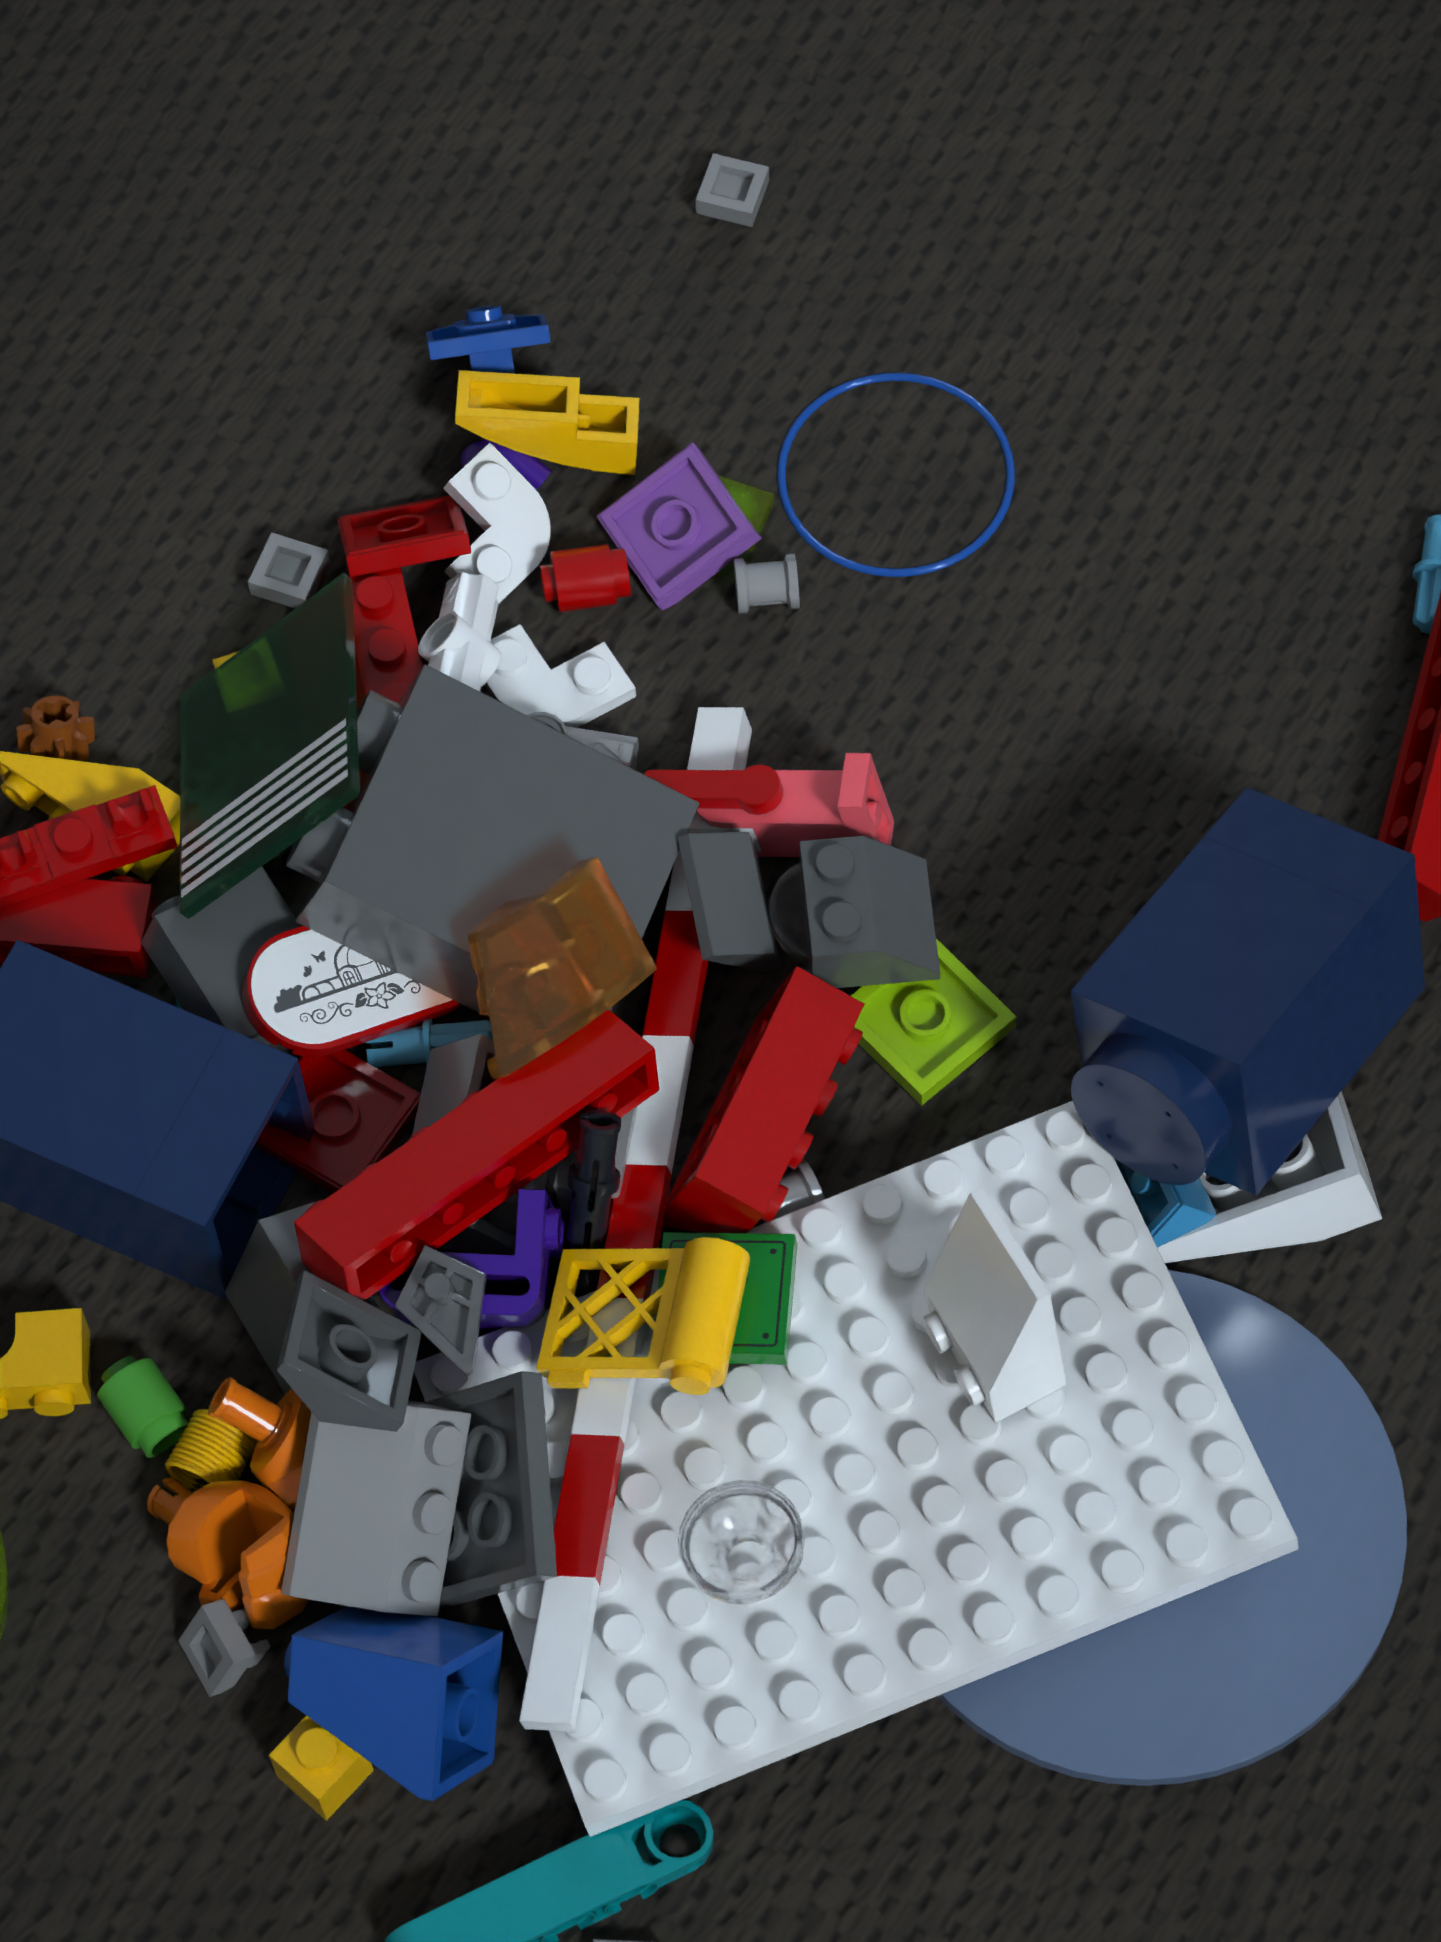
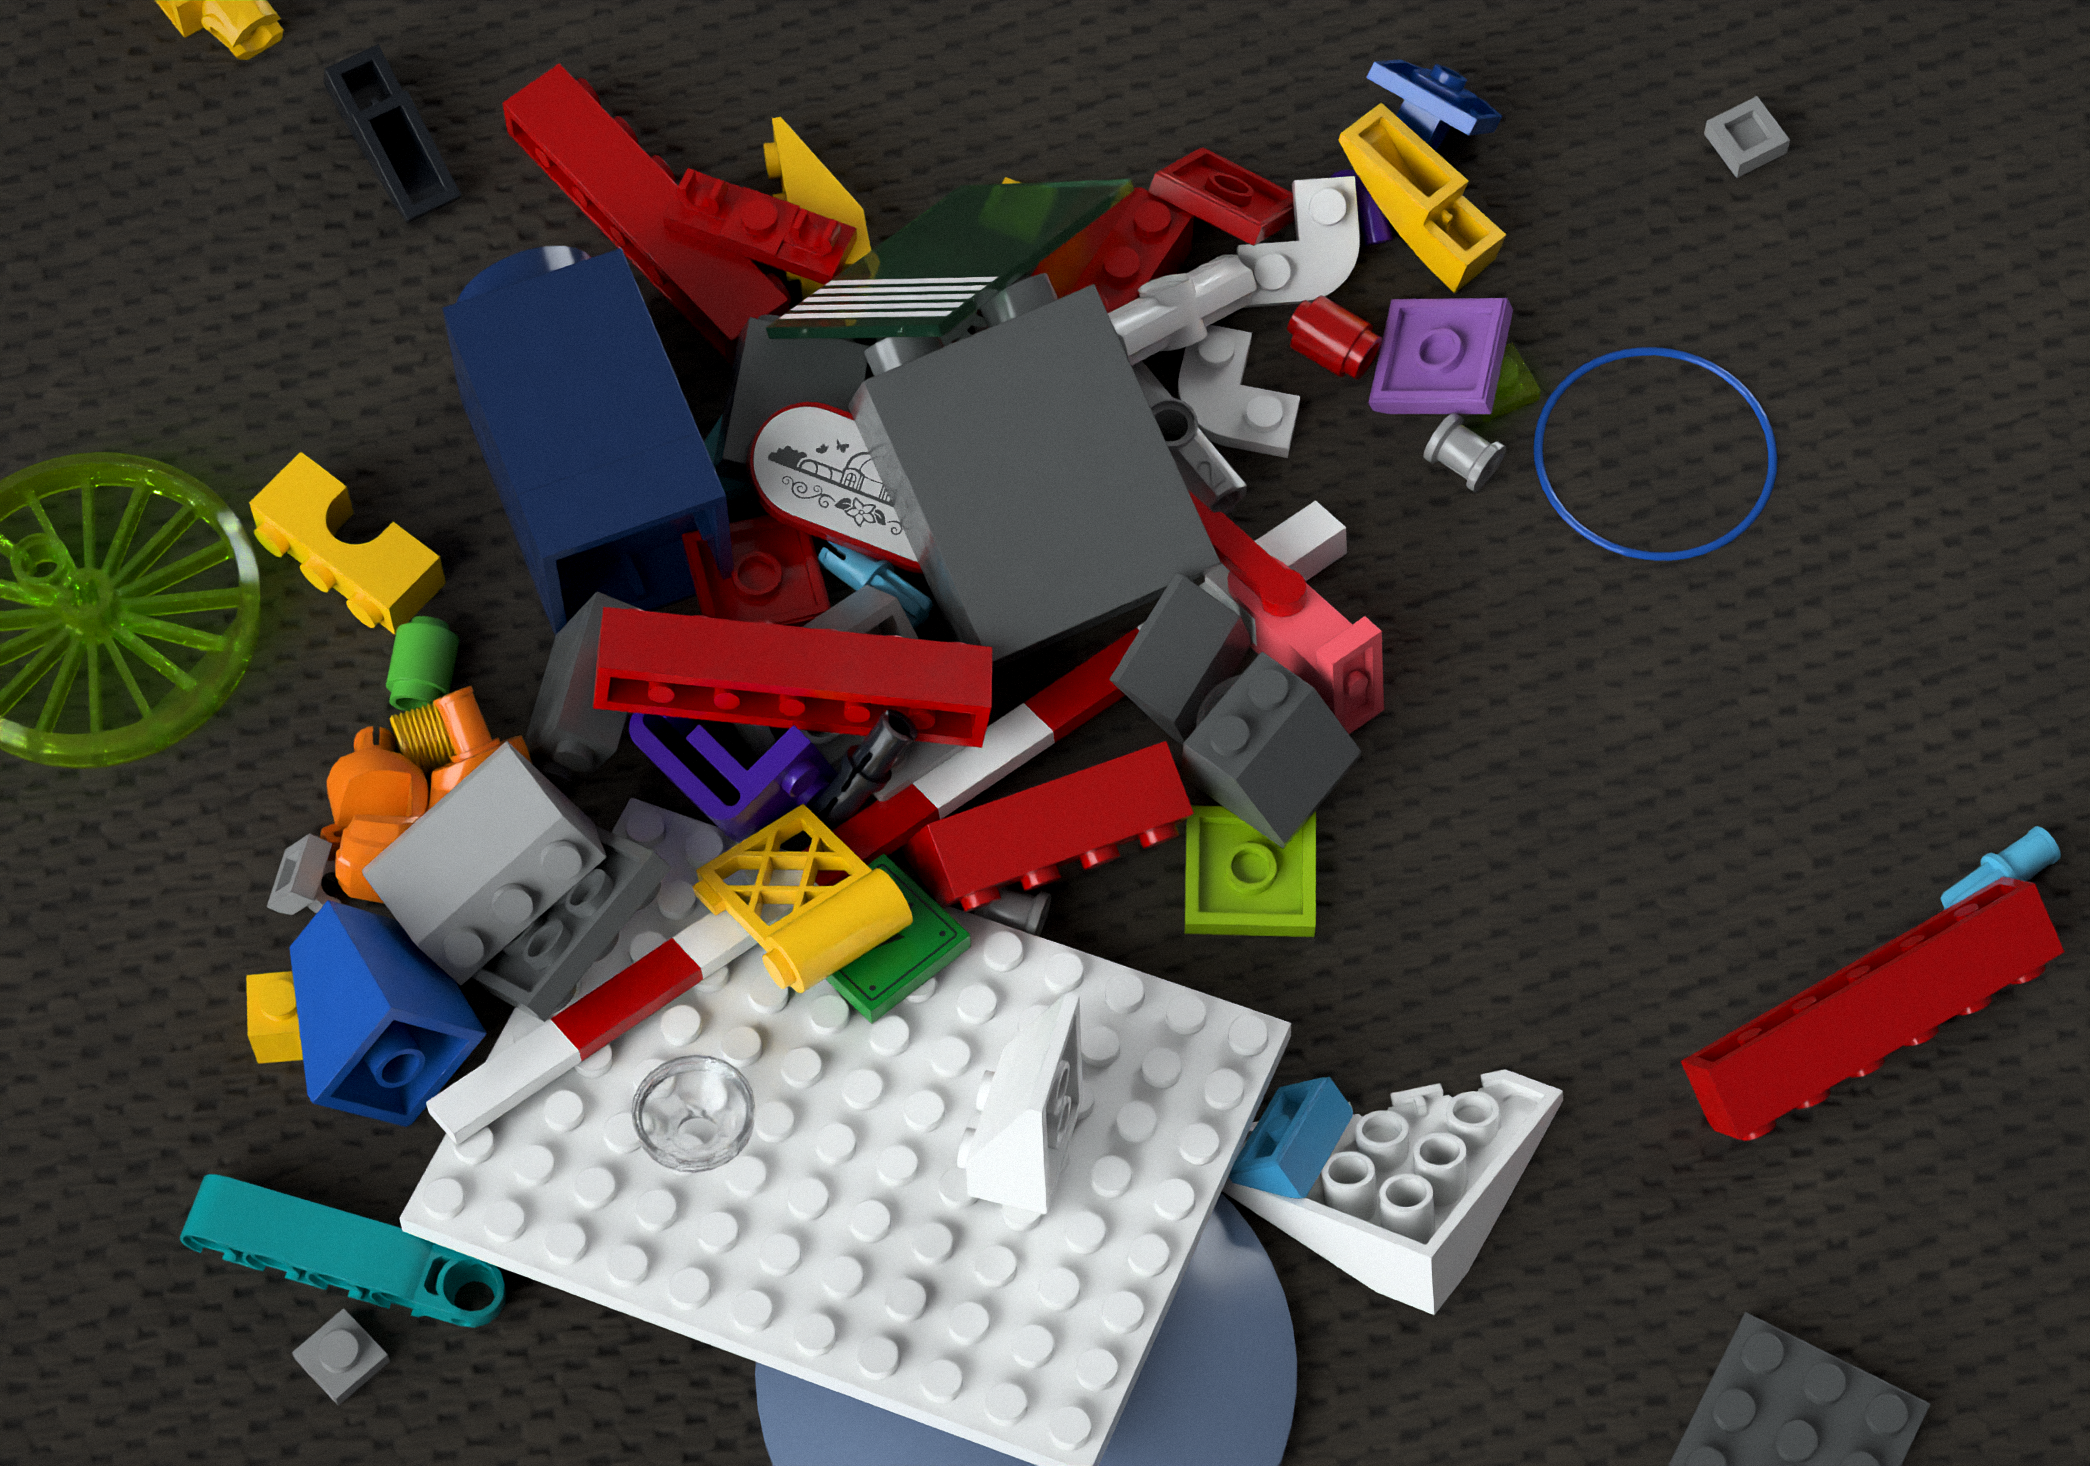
camera: 40 degrees right, 0 degrees up
(56, 729) = (839, 137): dark orange gear -> none
(288, 571) = (1123, 153): light grey plate -> none
(347, 1357) = (544, 733): dark grey slope -> none
(445, 1305) = (662, 764): flat silver piece -> none
(554, 964) = (976, 584): clear orange slope -> none
(1246, 995) = (1472, 1048): dark blue container -> none

